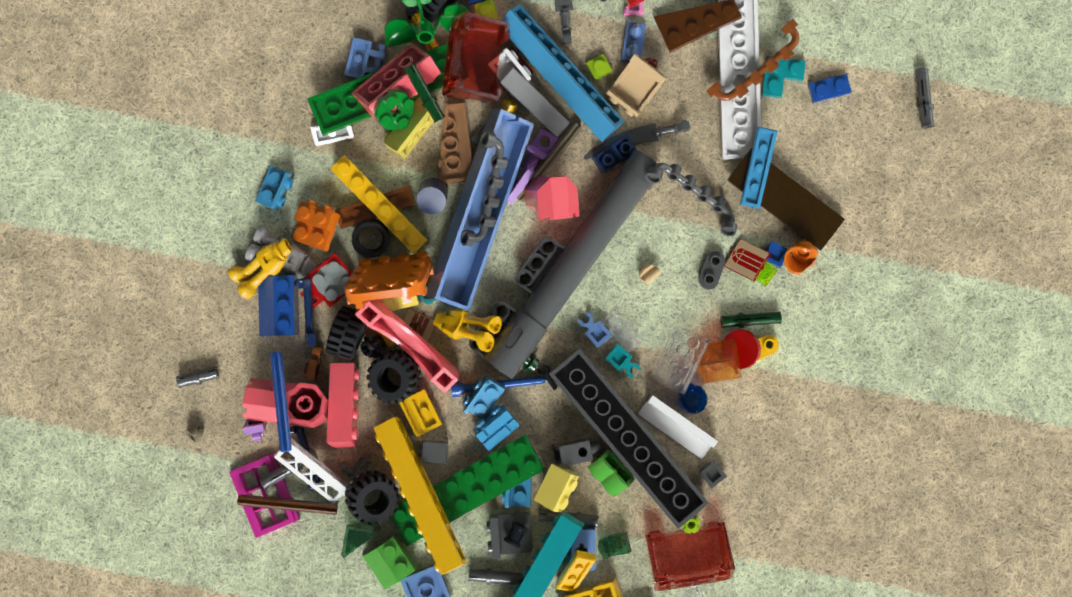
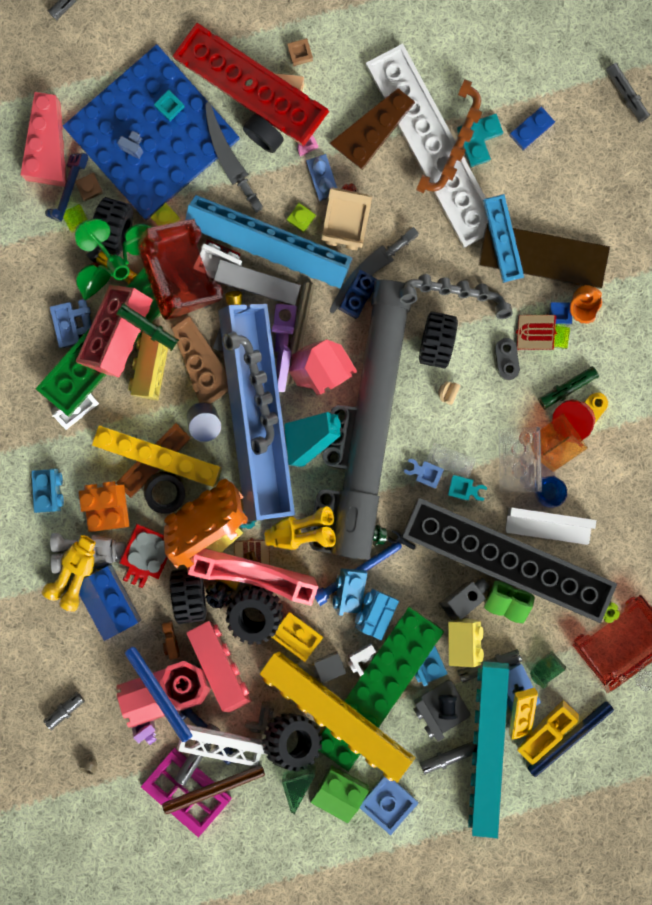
camera: 30 degrees left, 0 degrees up
(310, 337) = (151, 614): dark blue hinge -> none
(401, 117) = (136, 358): green plate -> none
(468, 456) = (364, 655): none -> white bracket
(514, 252) = (310, 437): none -> teal slope
(661, 225) = (438, 340): none -> black tyre
(712, 474) = (606, 554): dark grey plate -> none

